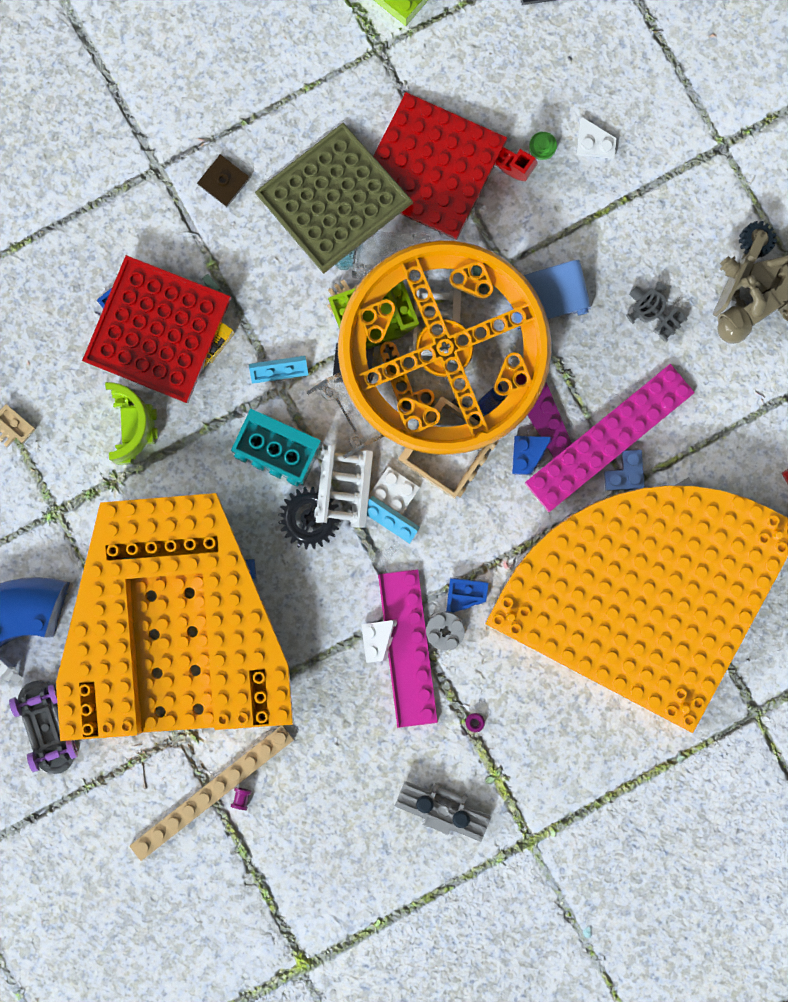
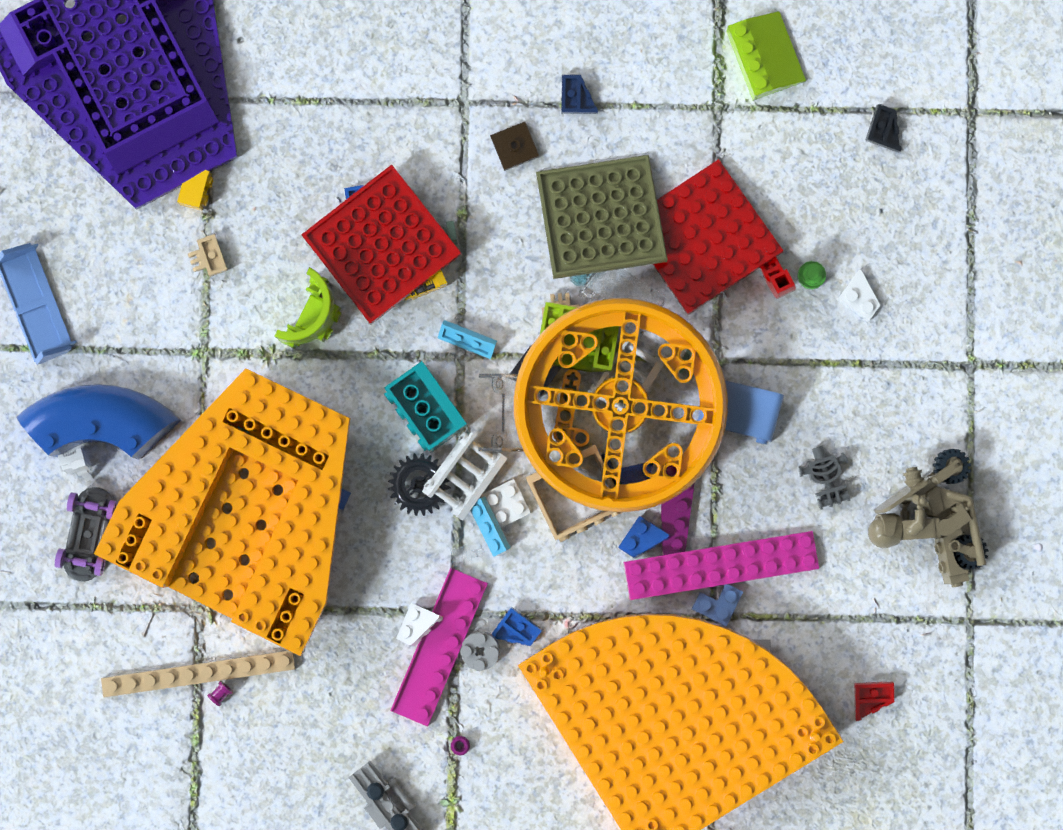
camera: 30 degrees right, 0 degrees up
(251, 107) = (576, 97): none -> dark blue wing

